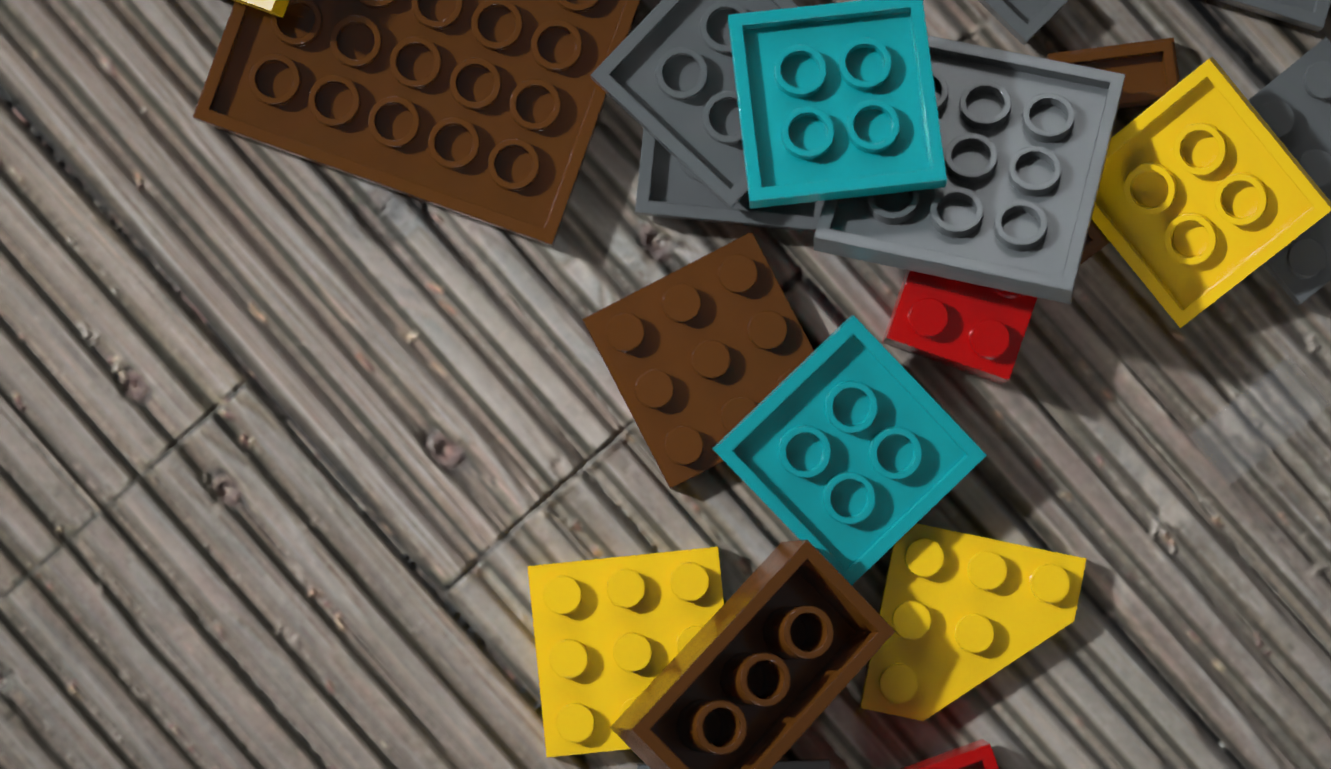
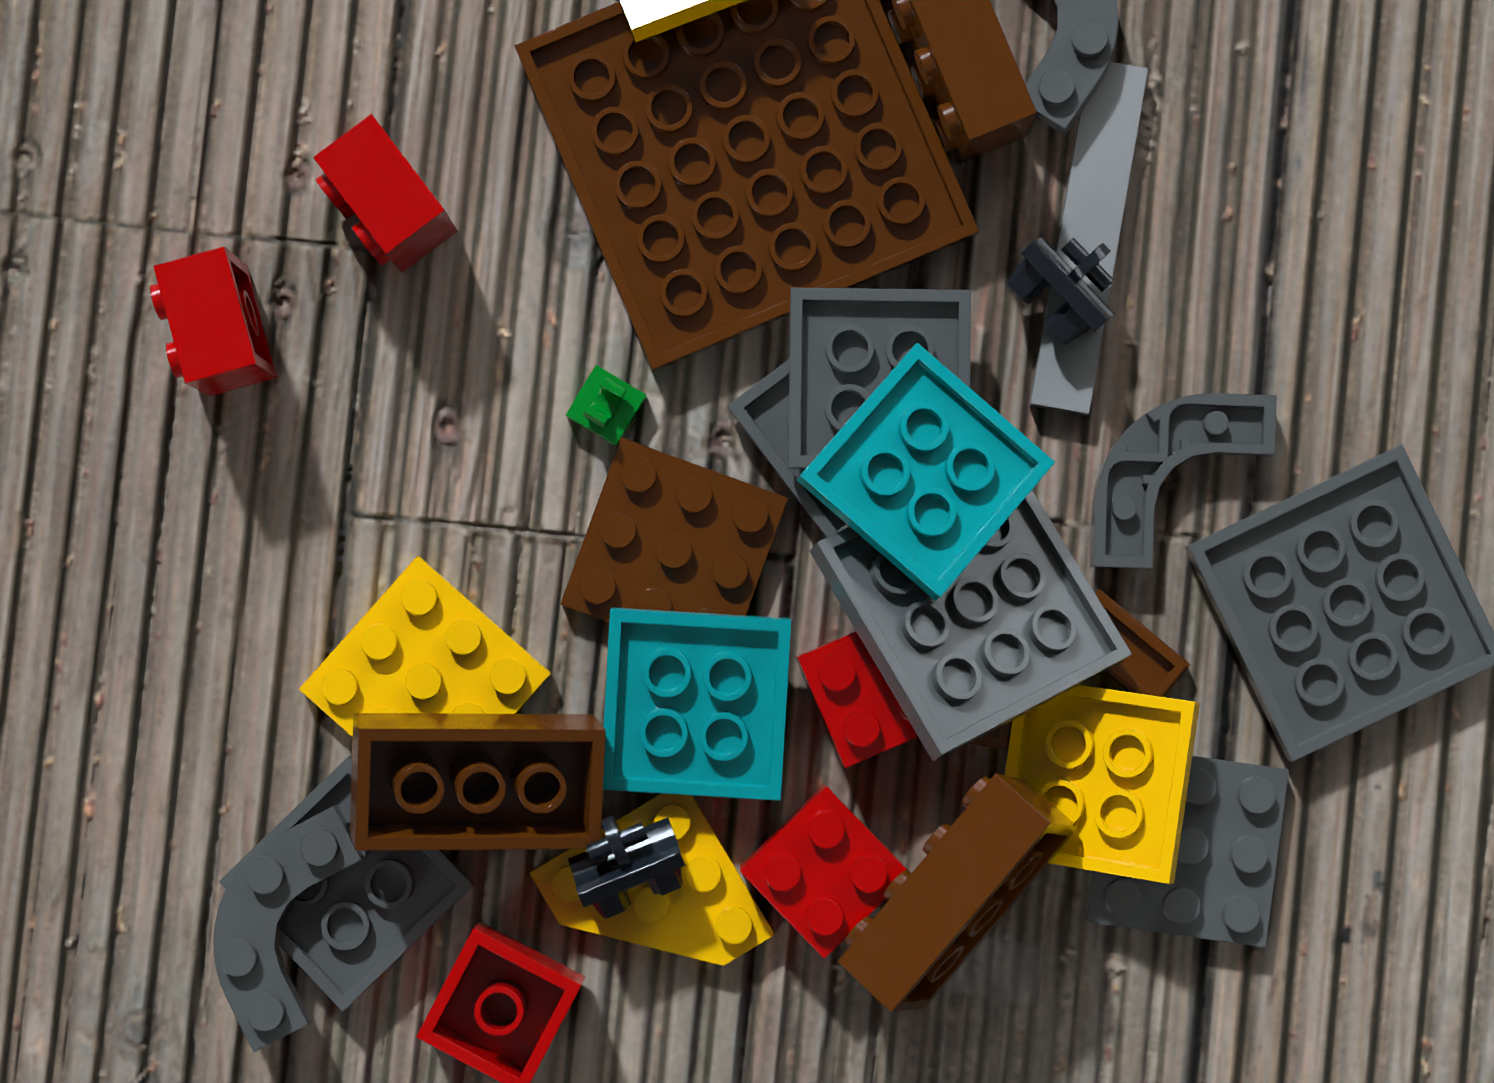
camera: 40 degrees right, 0 degrees up
(195, 556) = (212, 322): none -> red brick
(219, 326) = (377, 183): none -> red brick
(545, 308) = (606, 405): none -> green tile
(924, 621) = (627, 860): none -> black hips
(1072, 471) = (822, 870): none -> red brick
(1186, 382) = (955, 892): none -> reddish brown brick

